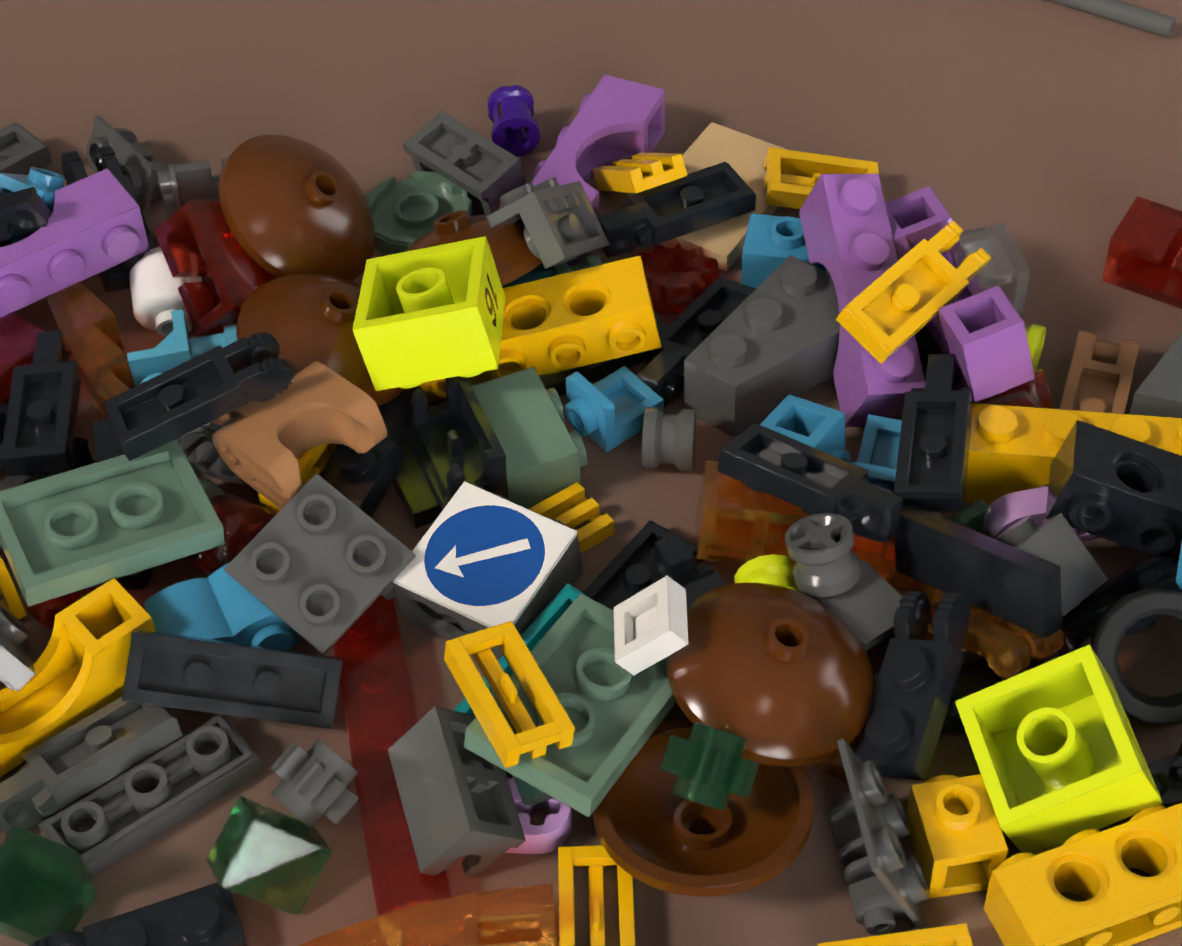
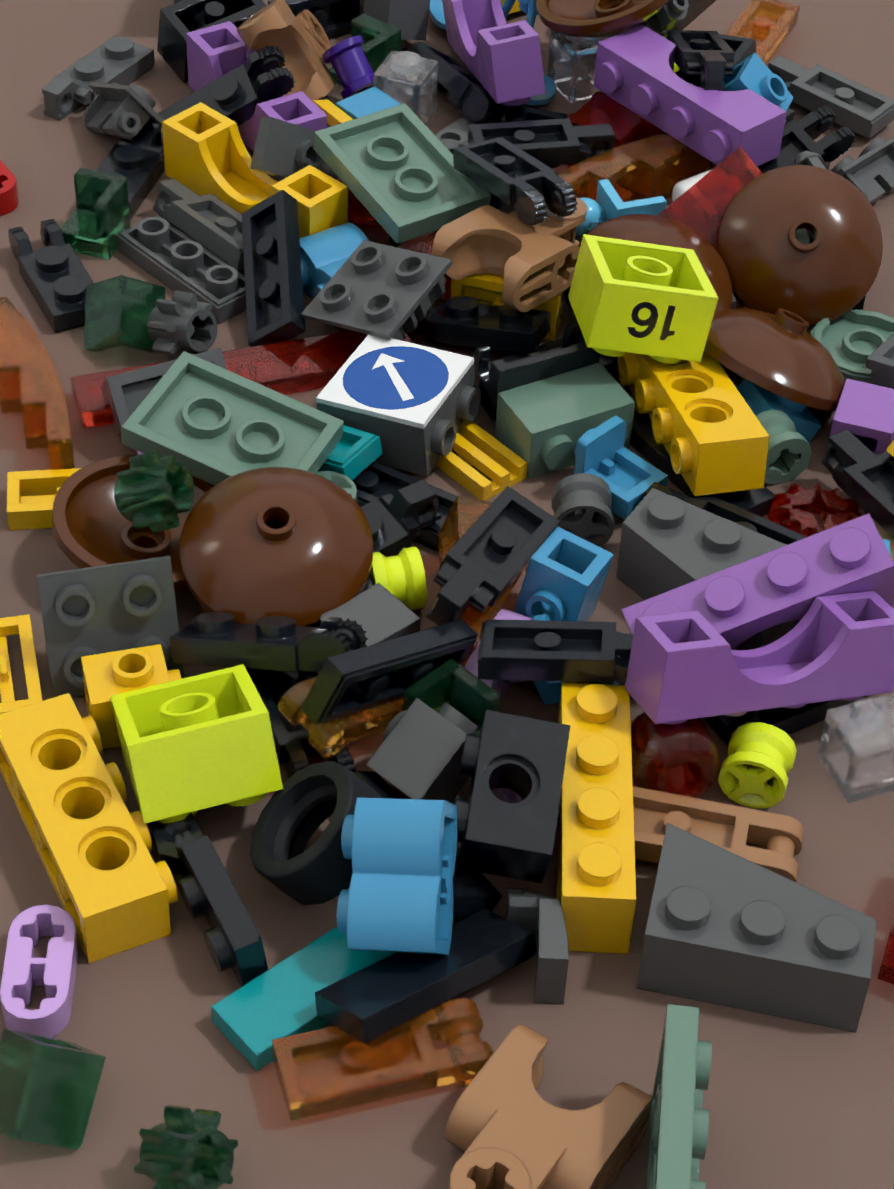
camera: 80 degrees right, 5 degrees down
(529, 738) = (220, 374): yellow tile -> none
(556, 220) = (798, 379): dark grey bracket -> none
(650, 625) = (290, 446): white plate -> none
(823, 555) = (404, 573): dark grey wheel -> none
(910, 294) = (733, 601): yellow hinge -> none

